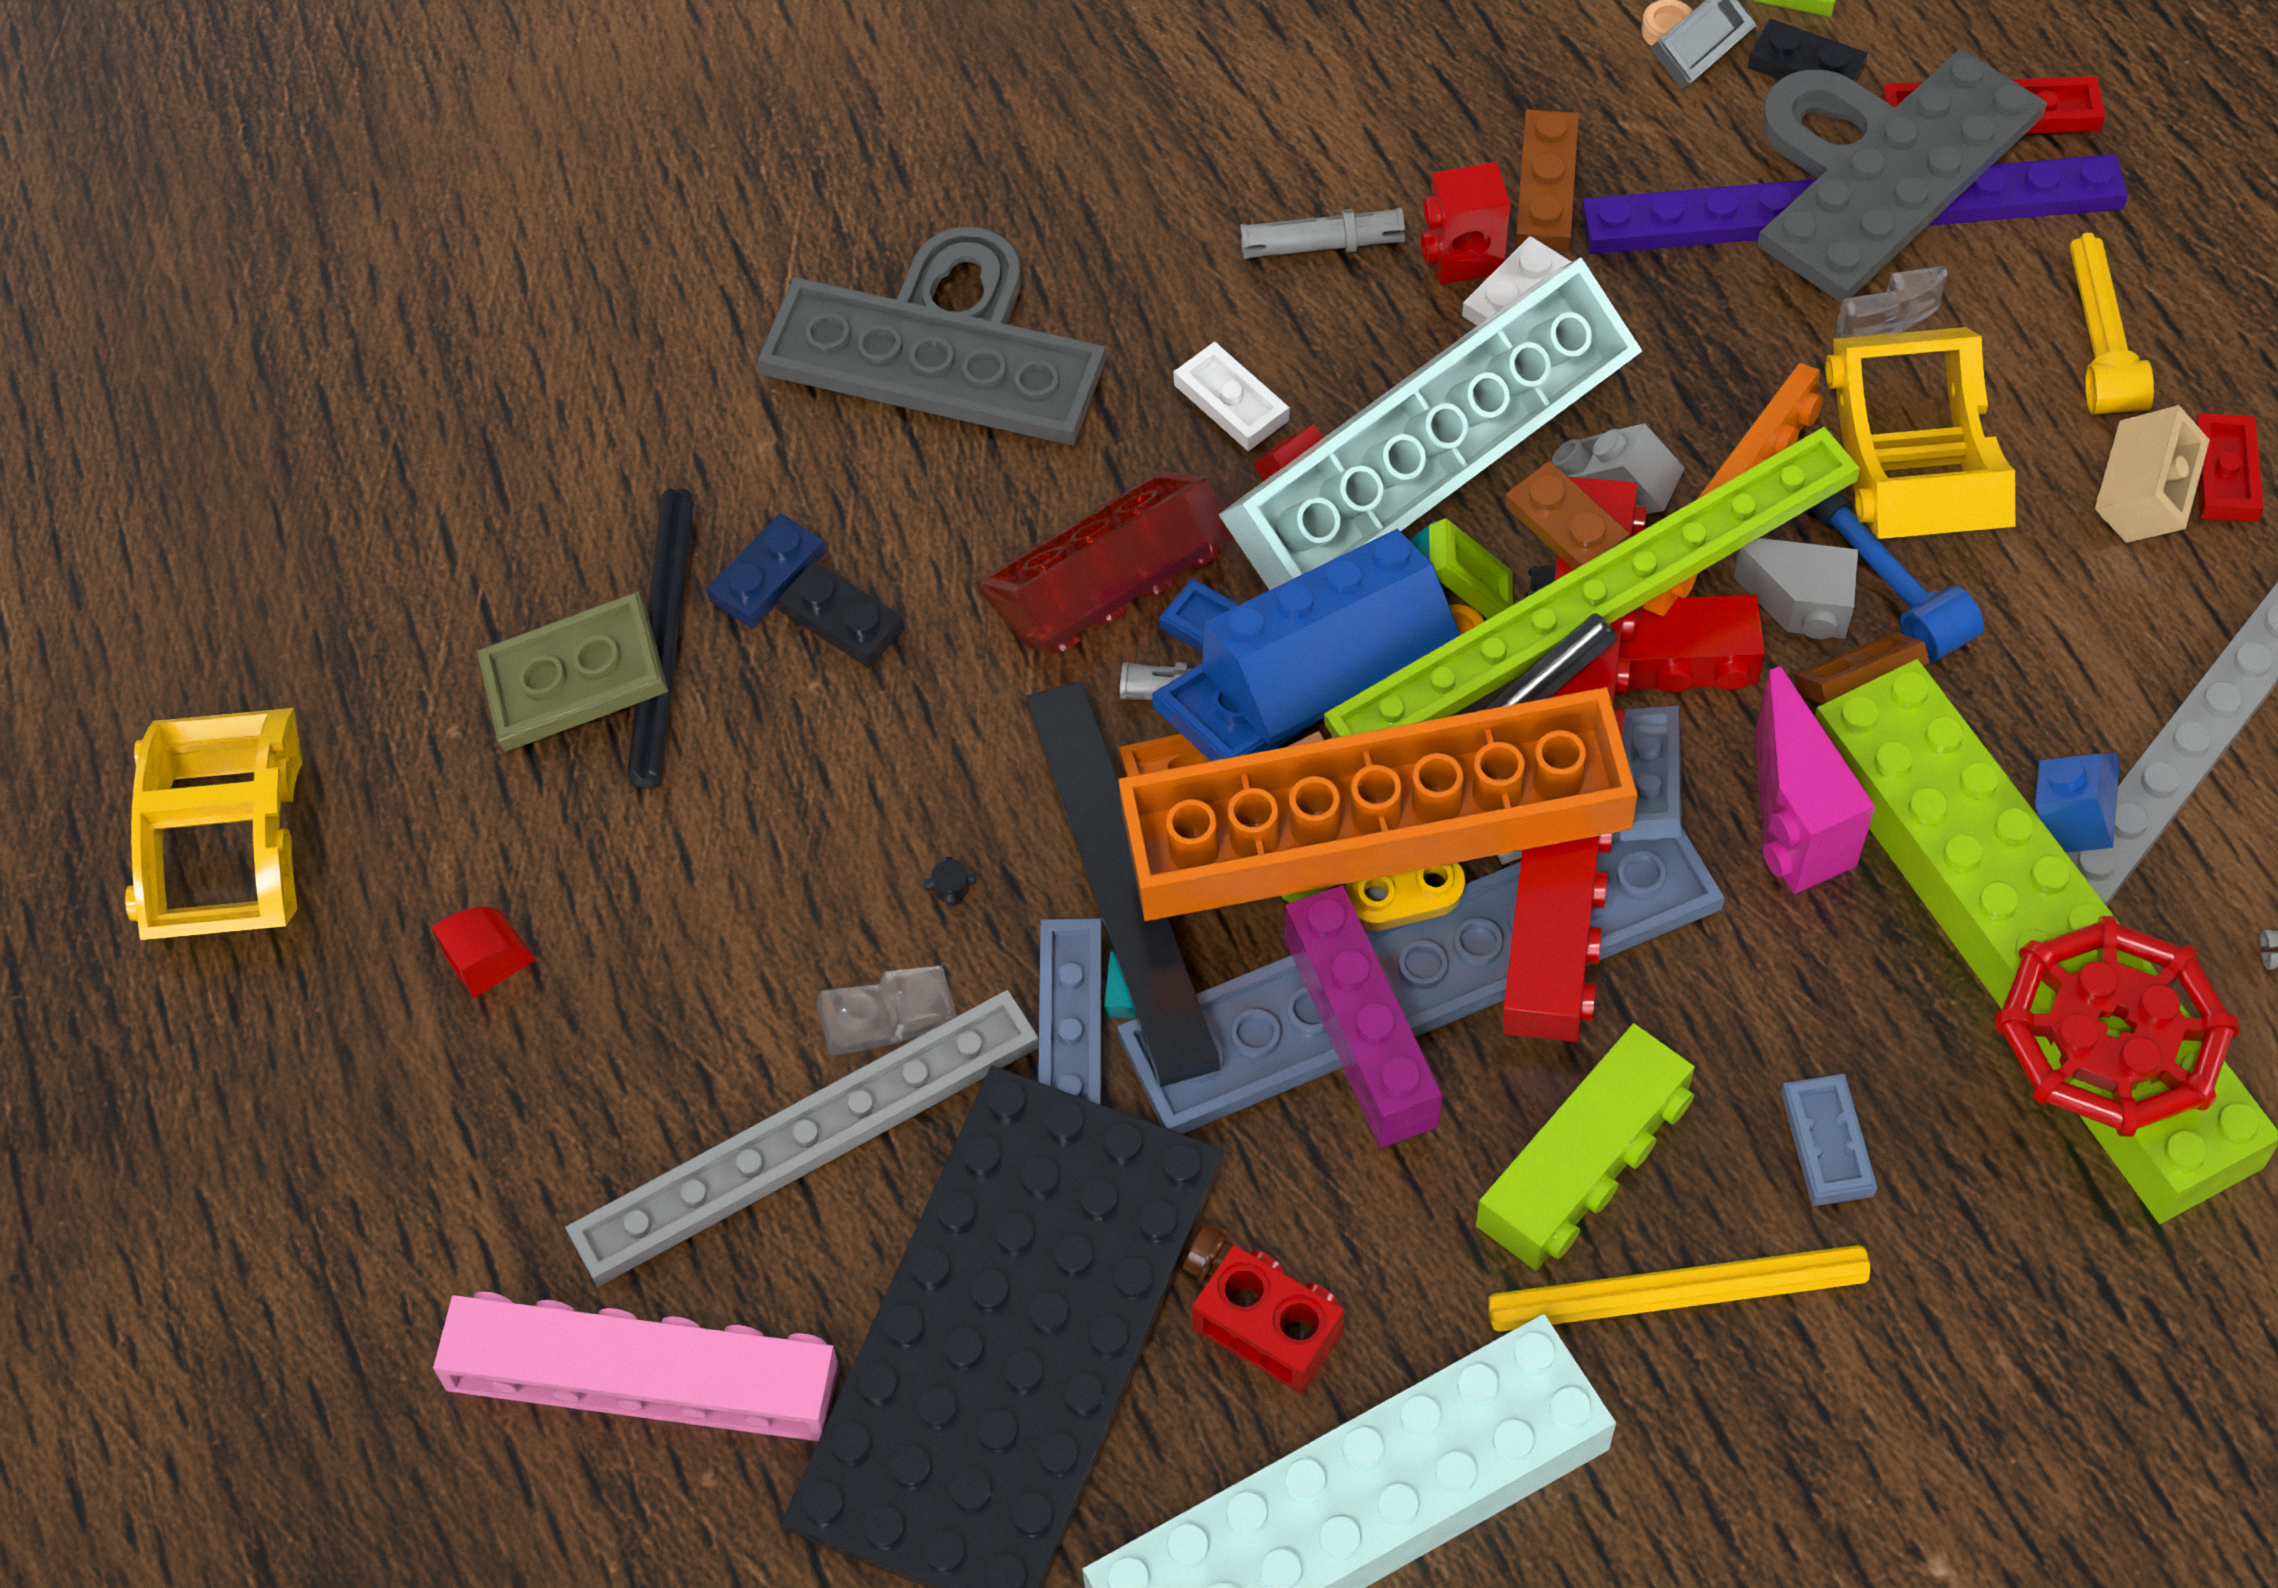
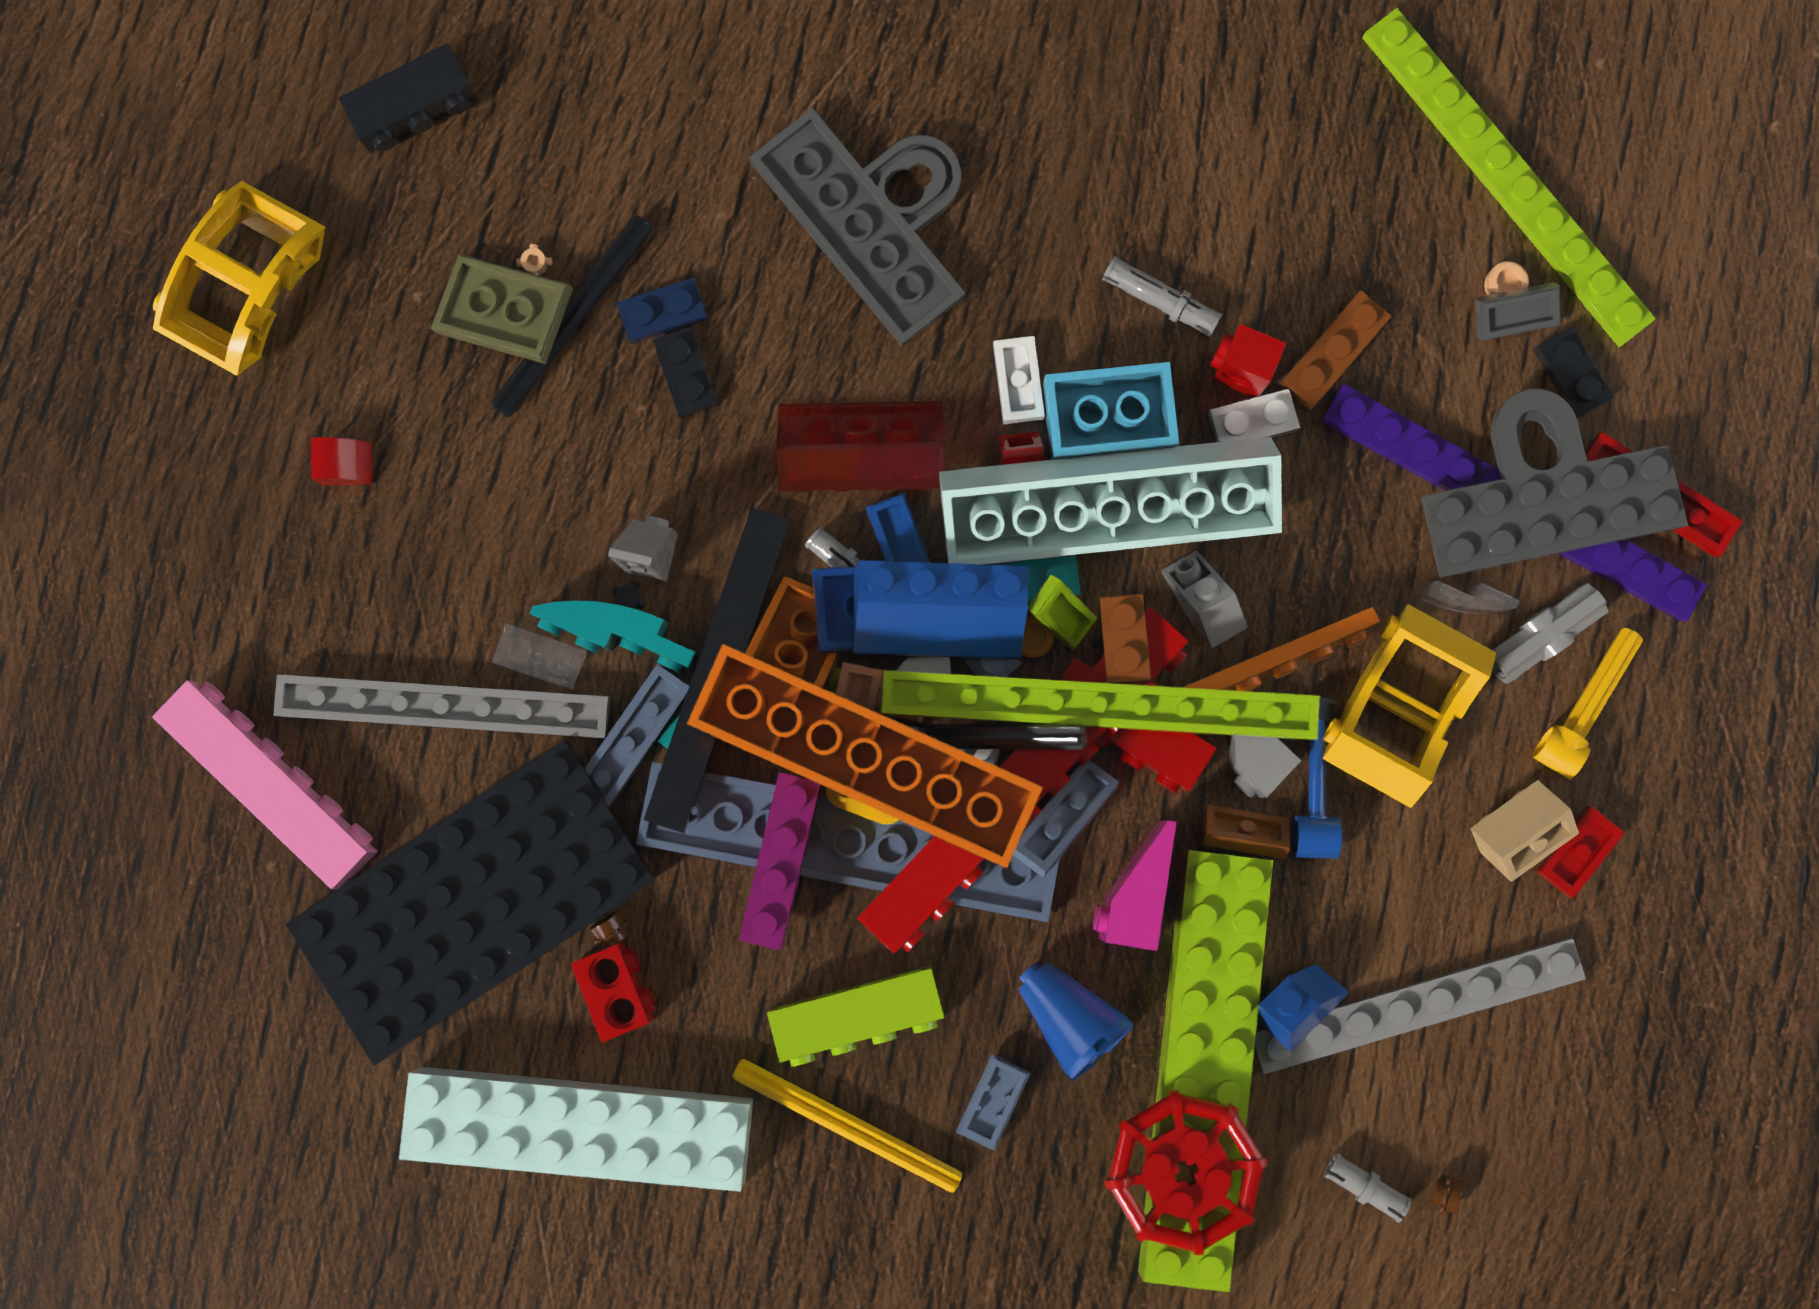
camera: 35 degrees right, 25 degrees up
(306, 531) = (408, 99): none -> black brick
(572, 603) = (534, 261): none -> light nougat piece
(935, 918) = (602, 623): none -> teal slope
(940, 801) = (645, 548): none -> light grey slope
(1355, 349) = (1110, 410): none -> medium azure brick
(1840, 975) = (1072, 1018): none -> blue cone
(2002, 285) = (1548, 632): none -> light grey piece

